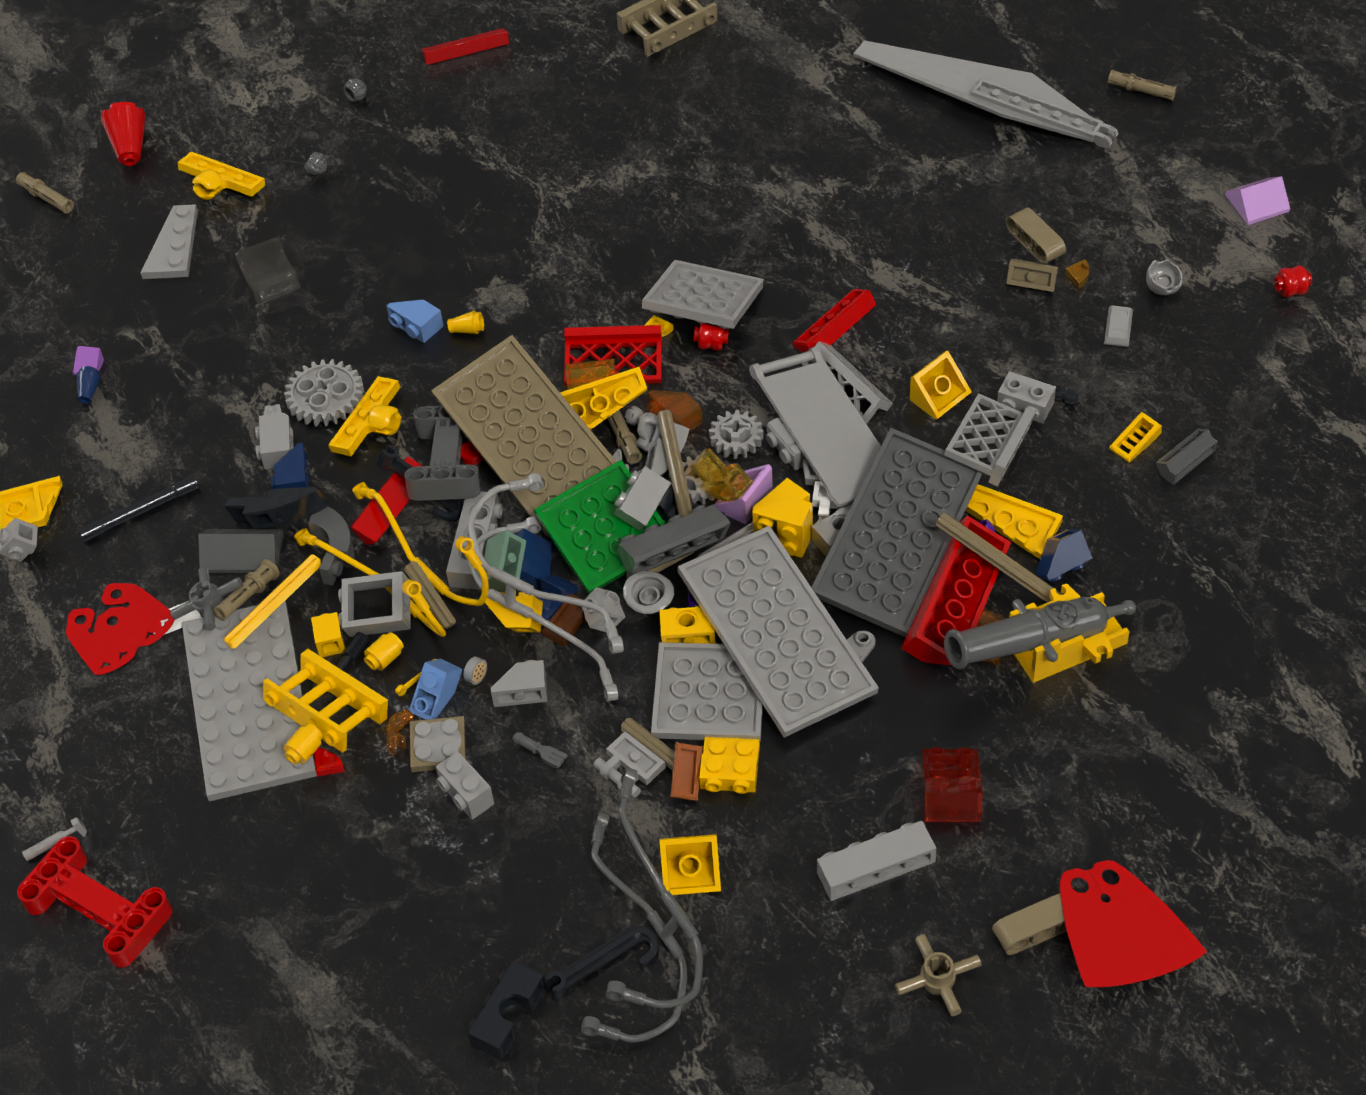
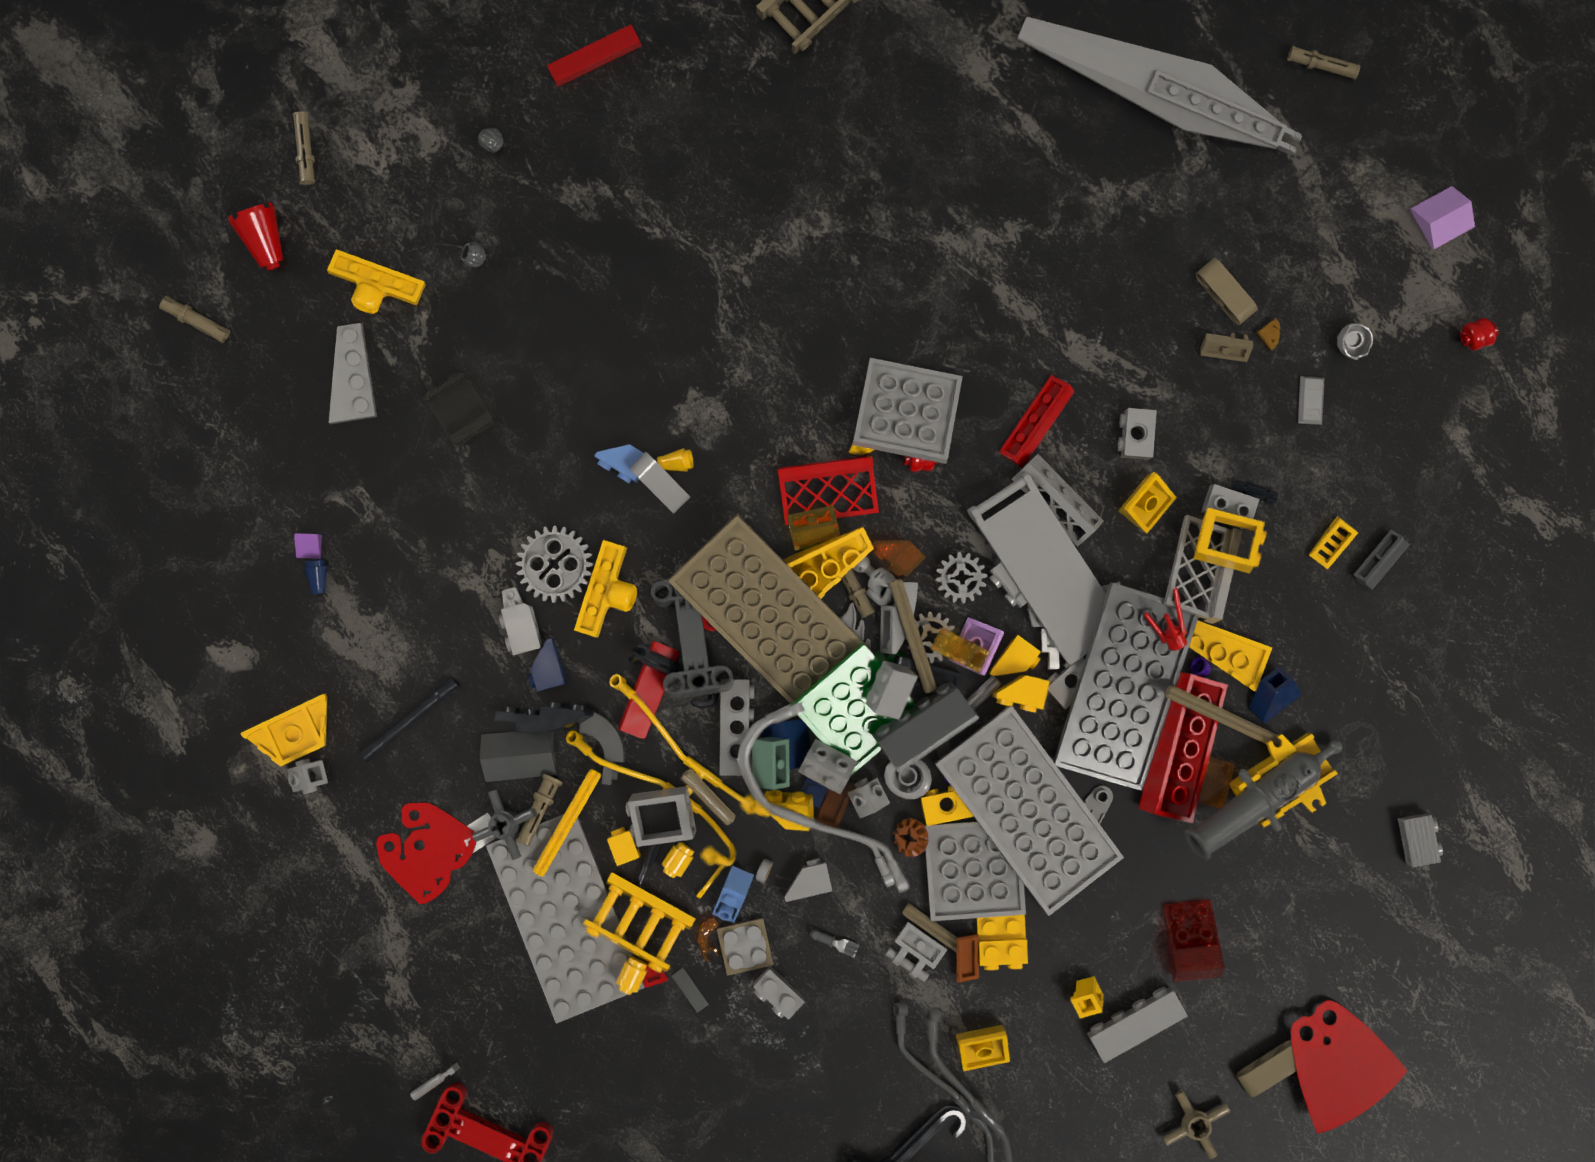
camera: 15 degrees left, 35 degrees up
(185, 91) = (307, 174): none -> dark tan pin
(366, 783) = (690, 990): none -> dark grey window
(445, 330) = (659, 482): none -> light grey beam
(563, 570) = (827, 767): none -> light grey brick
(646, 659) = (917, 831): none -> dark orange gear
(819, 820) = (1088, 997): none -> yellow brick
(935, 333) = (1143, 420): none -> light grey brick
(952, 479) = (1173, 635): none -> red plant
(1015, 419) = (1226, 560): none -> yellow window
(1224, 706) = (1420, 840): none -> light grey brick

